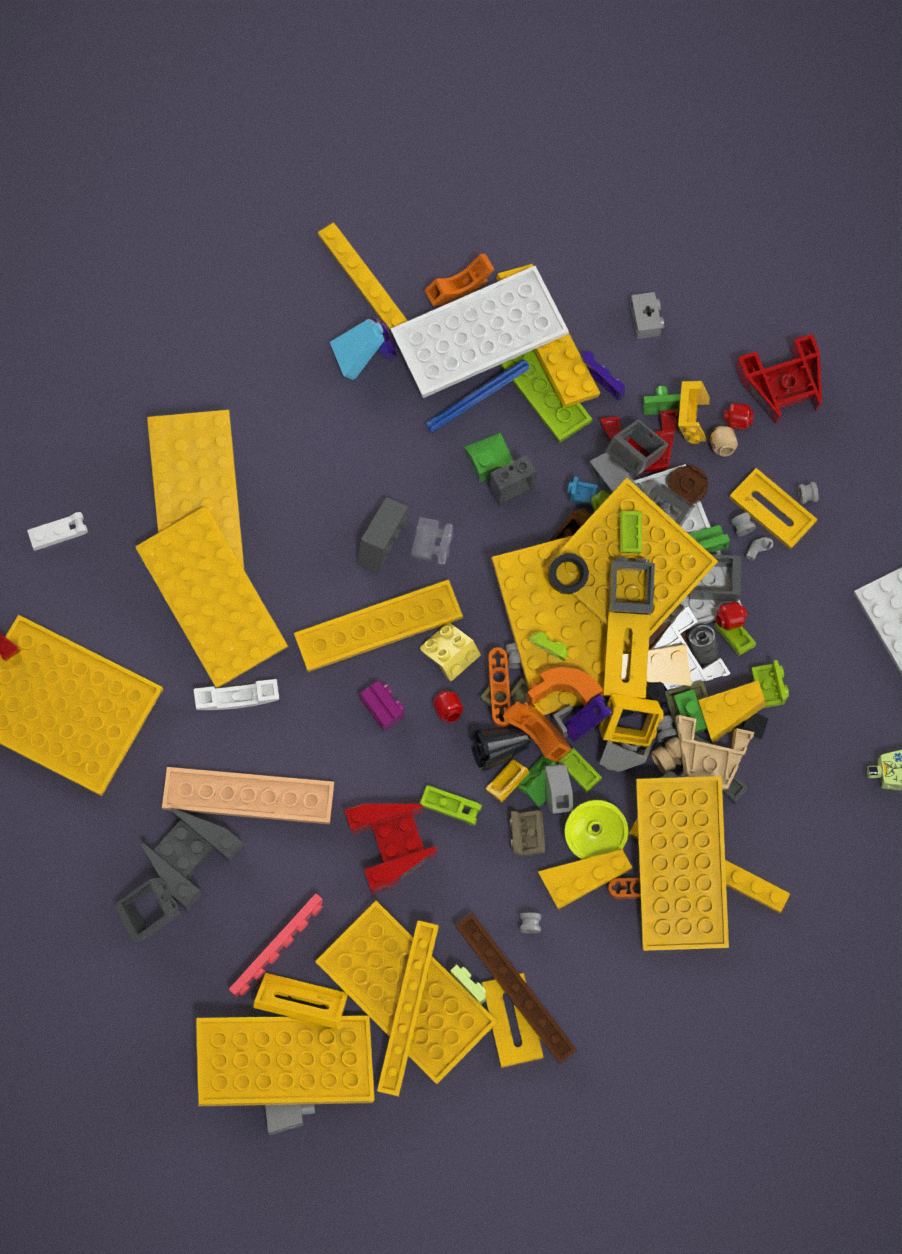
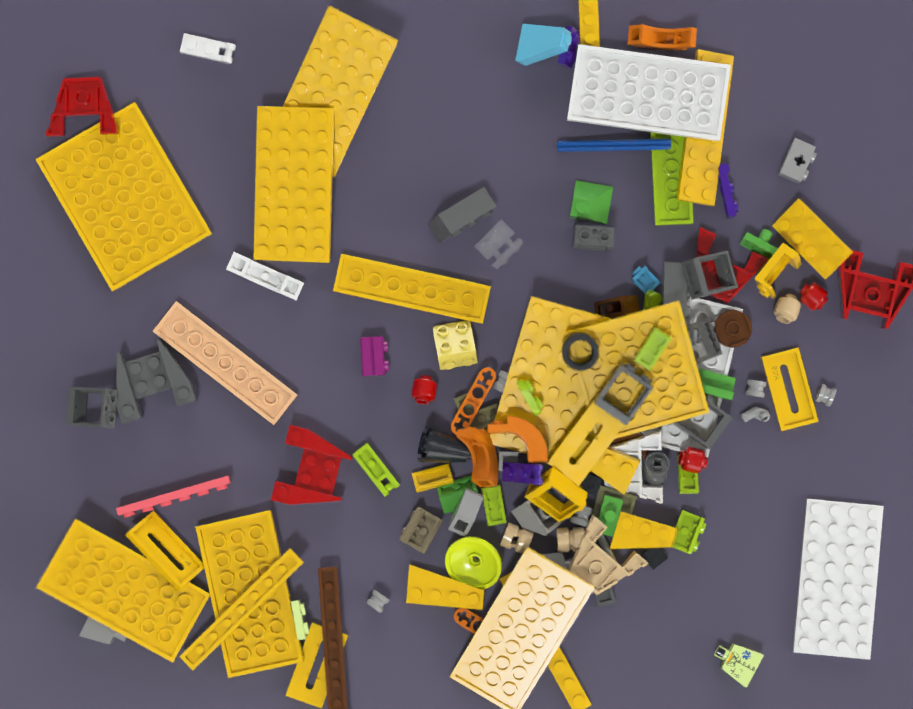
camera: 25 degrees right, 15 degrees up
(627, 782) = (524, 538): none -> tan wheel
(714, 367) = (812, 238): none -> yellow plate

